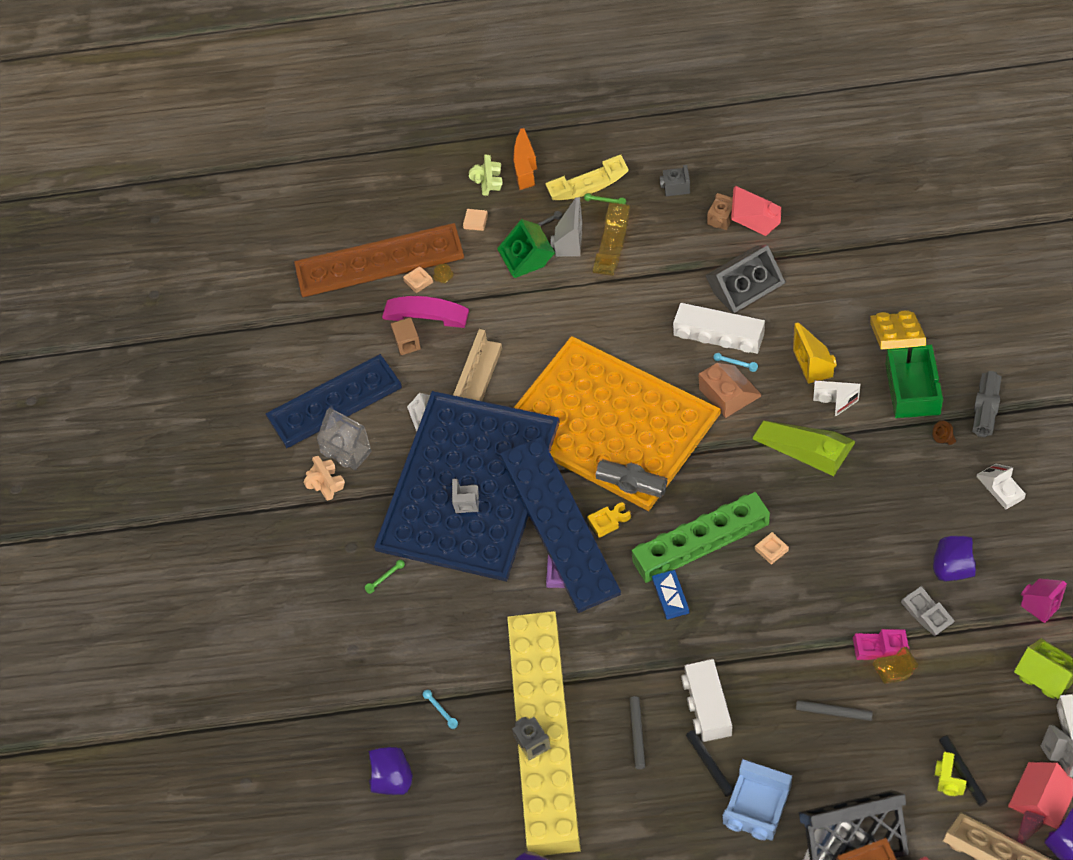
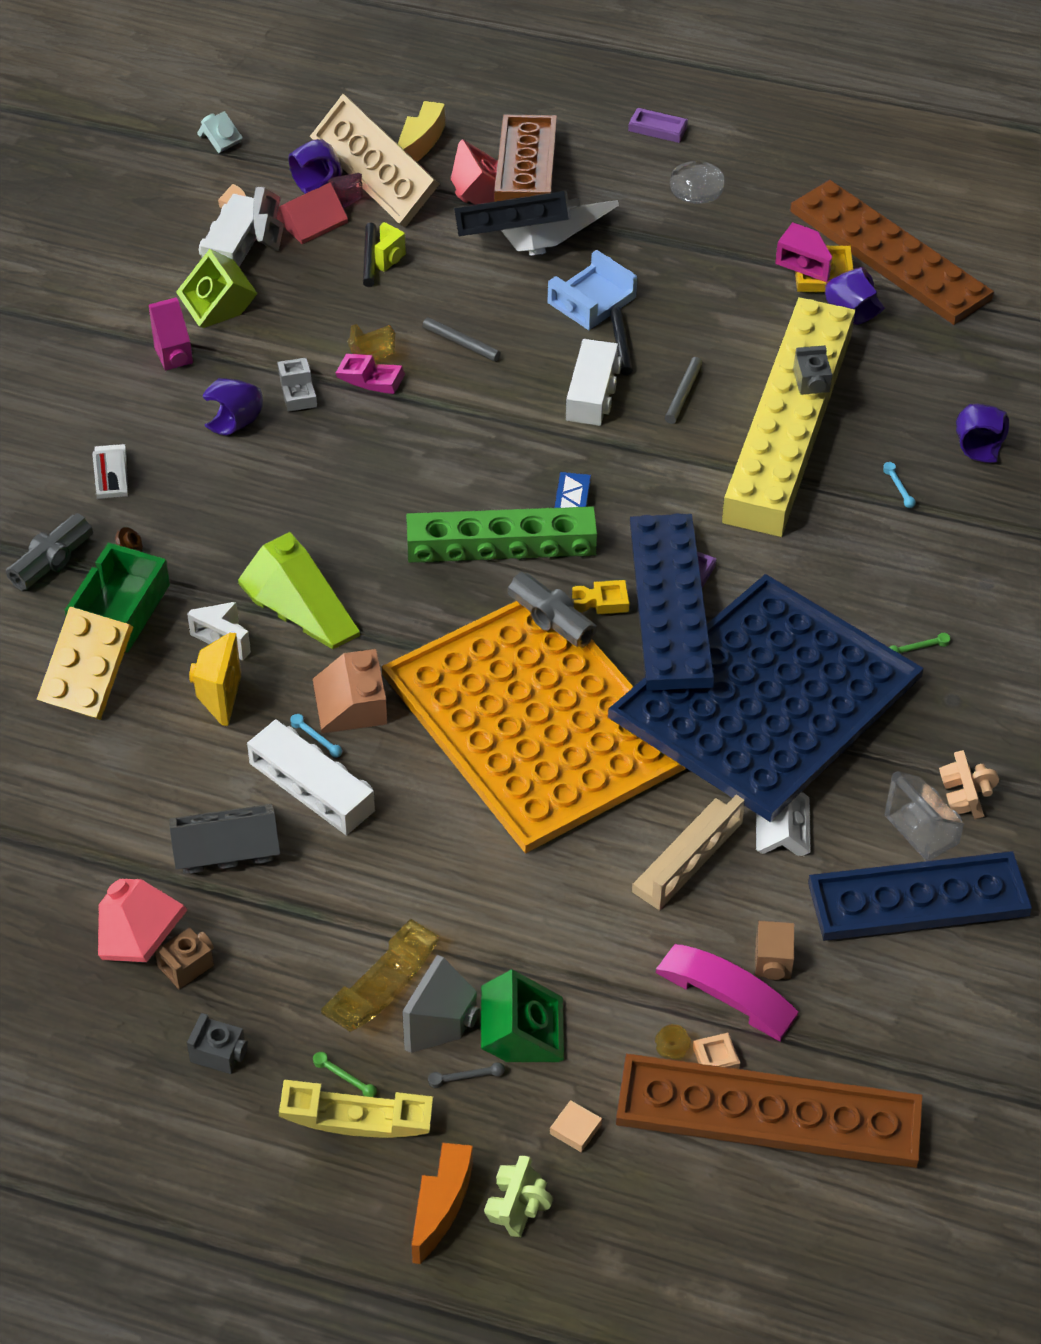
camera: 165 degrees left, 5 degrees down
(465, 497) = (781, 657): light grey panel -> none
(771, 548) = (422, 501): light nougat tile -> none

